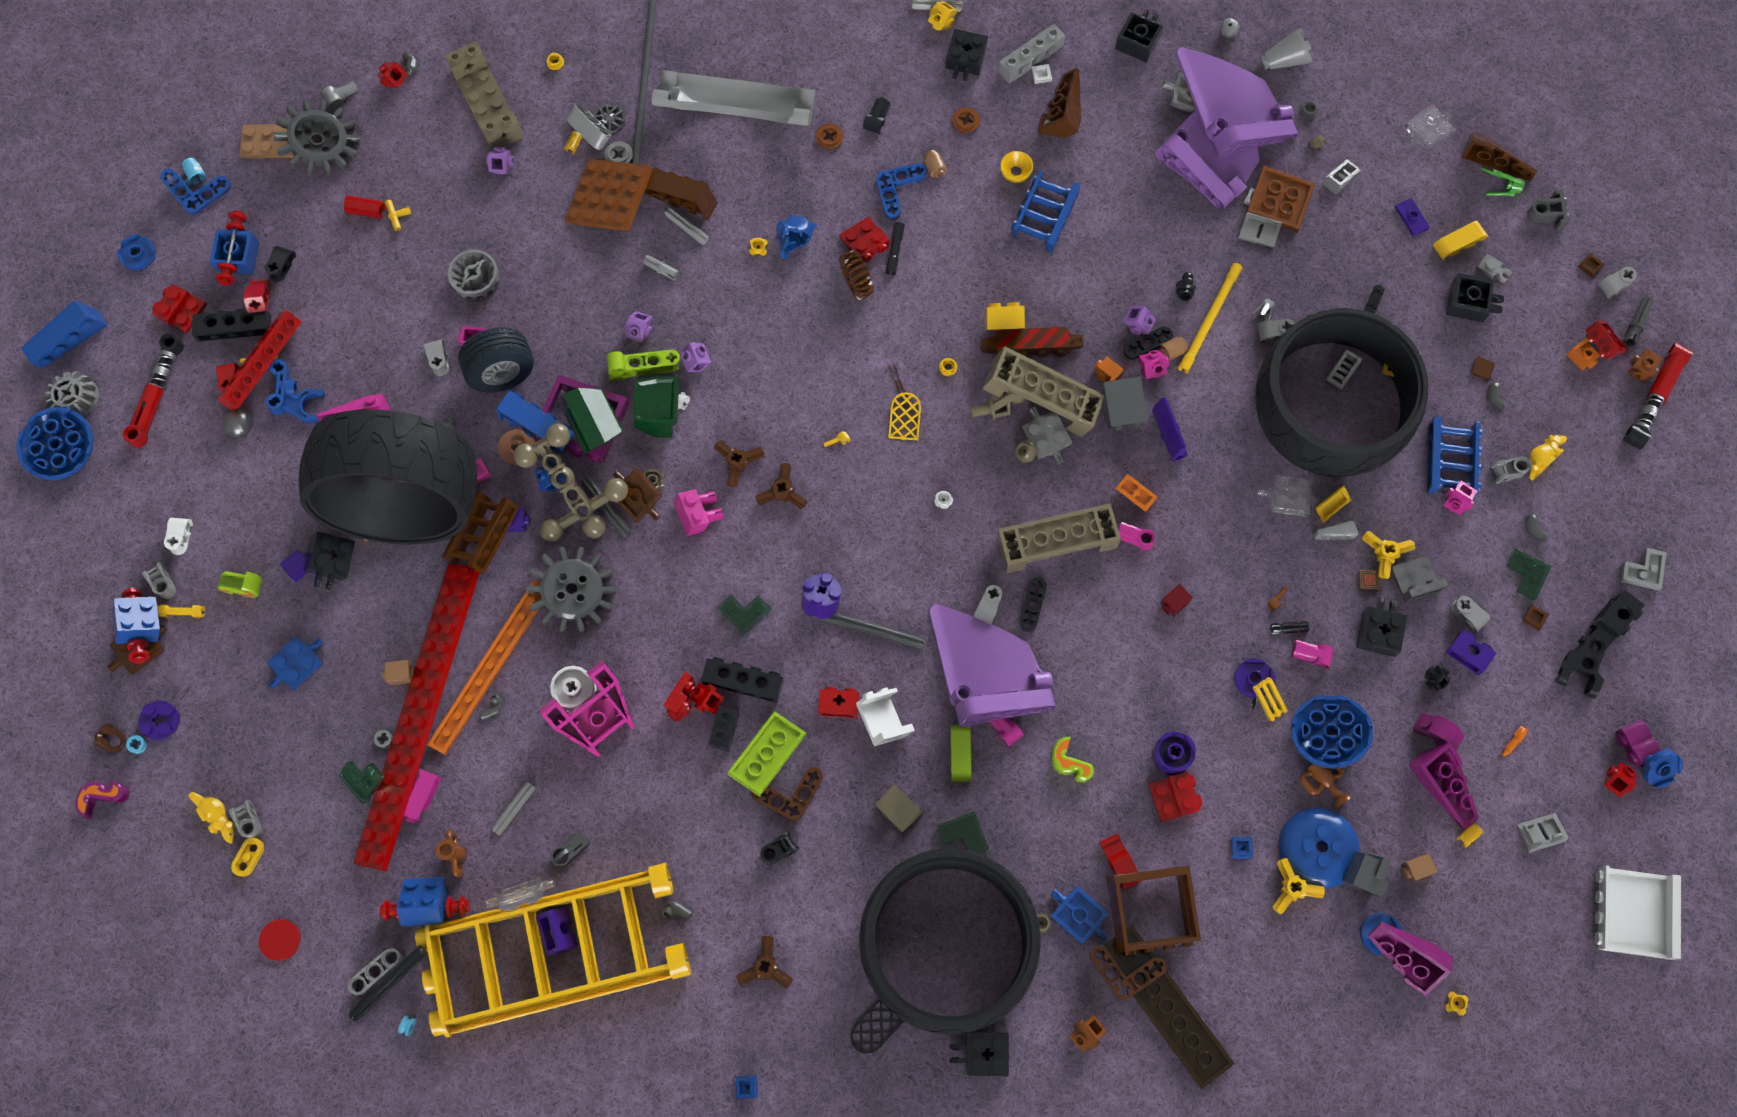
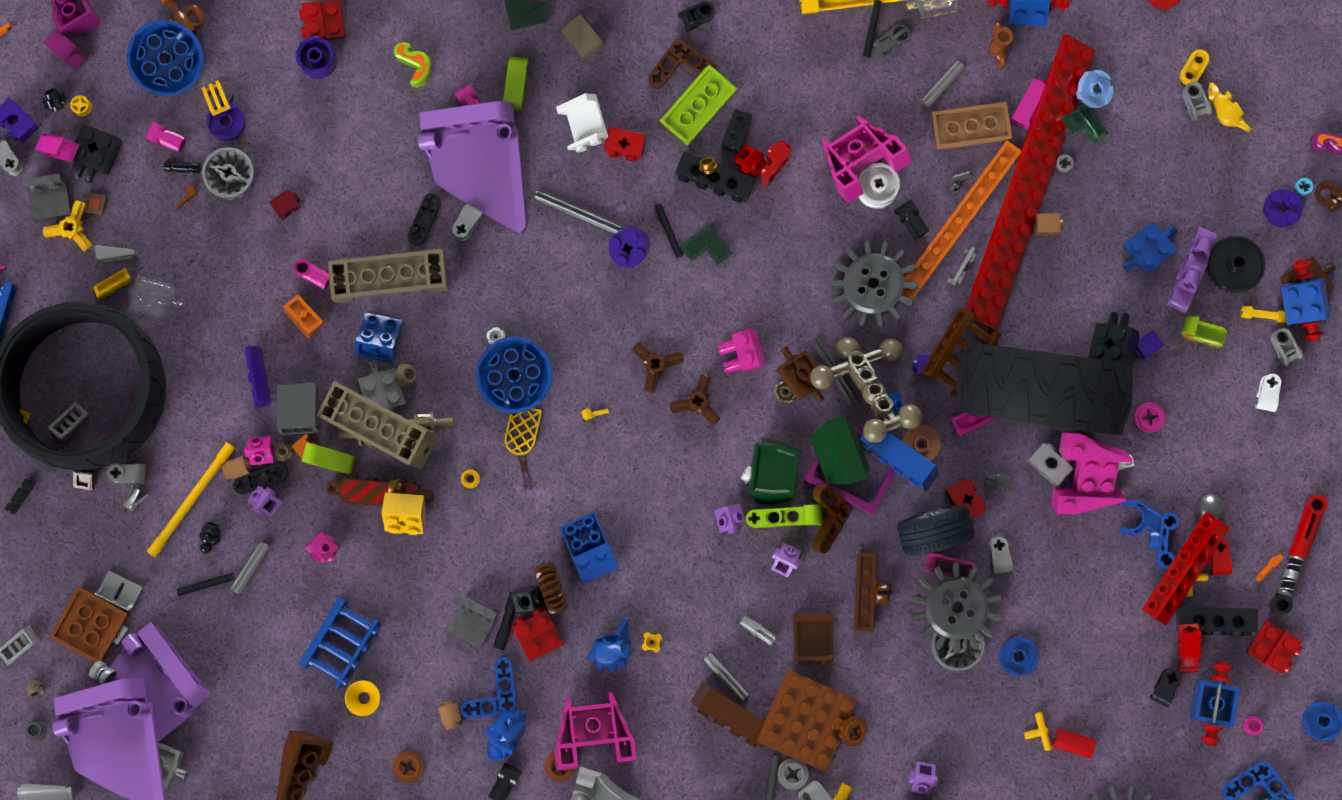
camera: 170 degrees left, 10 degrees up
(177, 383) = (1269, 567): none -> orange piece
(200, 241) = (1253, 725): none -> dark pink plate
(220, 659) = (1226, 274): none -> black wheel
(250, 641) = (1192, 270): none -> medium lavender piece
(286, 498) = (1156, 423): none -> dark pink gear
(353, 808) = (1085, 89): none -> light blue plate
(419, 283) = (1023, 666): none -> blue plate
(477, 409) = (967, 488): none -> red brick
(477, 626) = (961, 273): none -> light grey piece
(480, 312) = (938, 614): none -> dark grey gear
(481, 766) = (971, 126): none -> medium nougat plate
(539, 664) = (910, 217): none -> black piece
(559, 311) = (868, 592): none -> reddish brown plate
(568, 187) = (860, 730): none -> dark orange gear
(591, 858) = (872, 28): none -> black bar
(595, 373) = (825, 537): none -> reddish brown beam
(608, 265) = (813, 638): none -> reddish brown panel
(748, 687) = (708, 165): none -> pearl gold plate
(784, 623) = (668, 230): none -> black bar
(804, 162) = (592, 727): none -> dark pink wedge
(827, 319) = (589, 547): none -> blue slope
(878, 264) = (527, 598): none -> black brick
(882, 152) = (505, 735): none -> blue head
(922, 444) = (508, 356): none -> blue brick
(926, 244) = (472, 622): none -> flat silver bracket
(1016, 340) = (396, 486): none -> pearl gold plate
(1059, 486) = (378, 337): none -> blue bracket
(1077, 286) = (315, 548): none -> dark pink brick
(1086, 361) = (328, 458): none -> lime beam
(1130, 374) = (288, 451): none -> dark tan plate
(1142, 265) = (250, 567): none -> light grey axle
(1181, 247) = (205, 584): none -> black bar
(1251, 617) = (218, 164): none -> light grey gear
(1258, 157) = (102, 673): none -> light grey wheel
(1410, 673) = (78, 103): none -> yellow wheel
(1421, 624) = (57, 147): none -> dark pink window

